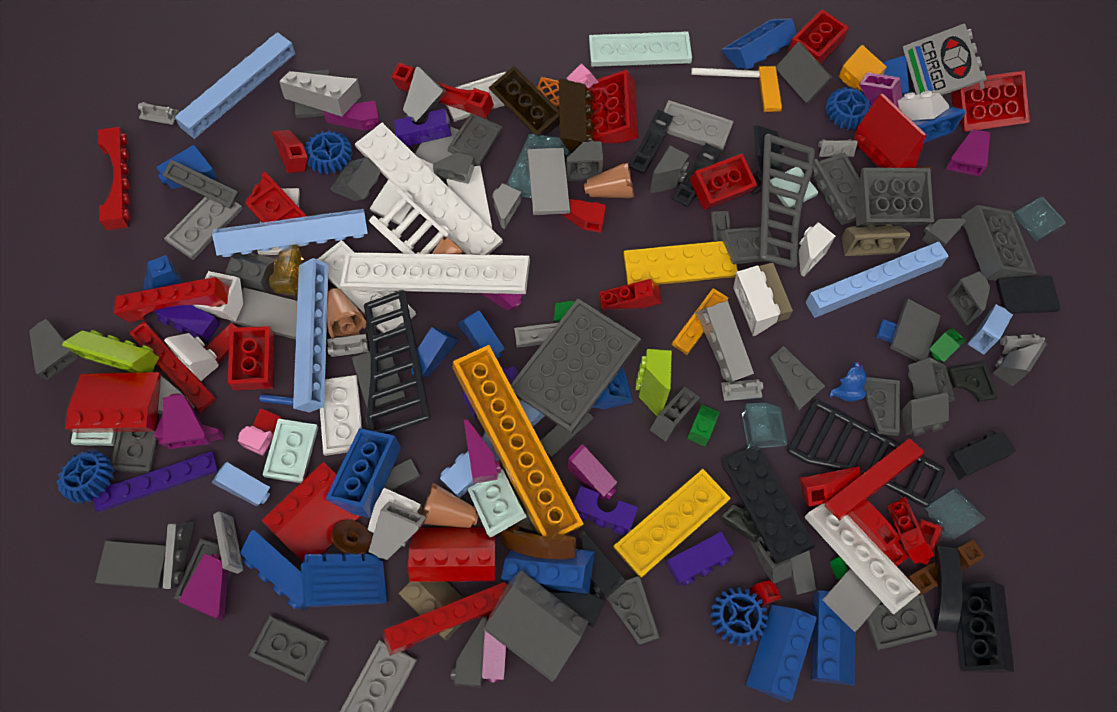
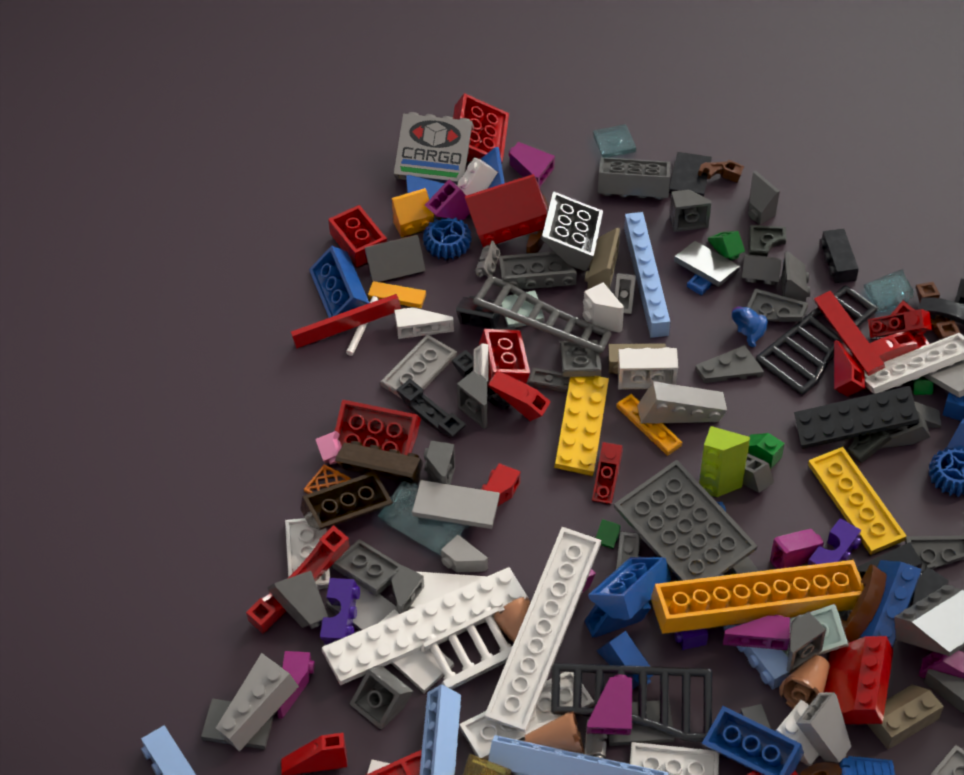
camera: 70 degrees left, 15 degrees down
(339, 149) = (321, 713): blue gear -> none
(369, 346) = (614, 708): none -> magenta slope
(432, 623) = (938, 728): red arch -> none
(472, 489) = (805, 640): none -> dark grey slope
(506, 336) = (630, 586): none -> blue slope
(611, 183) = (472, 451): nougat cone -> none
(640, 49) = (304, 390): light aqua plate -> none
(683, 200) = (519, 395): none -> red slope
(700, 559) = (897, 487): dark purple brick -> none
(713, 160) = (481, 360): none -> white tile
(721, 56) = (345, 321): none -> red tile
(740, 106) = (418, 322): none -> white slope
(742, 390) = (734, 406): light grey hinge -> none
(764, 425) = (774, 405): clear light blue slope -> none
(766, 591) = (933, 446): red slope -> none
(846, 265) = (625, 290): none -> light grey slope
(942, 231) = (613, 211): dark grey slope -> none
(990, 329) = (724, 209): light blue slope -> none
(1012, 343) = (738, 193): light grey hinge -> none
(1044, 313) = (728, 170): none -> reddish brown piece

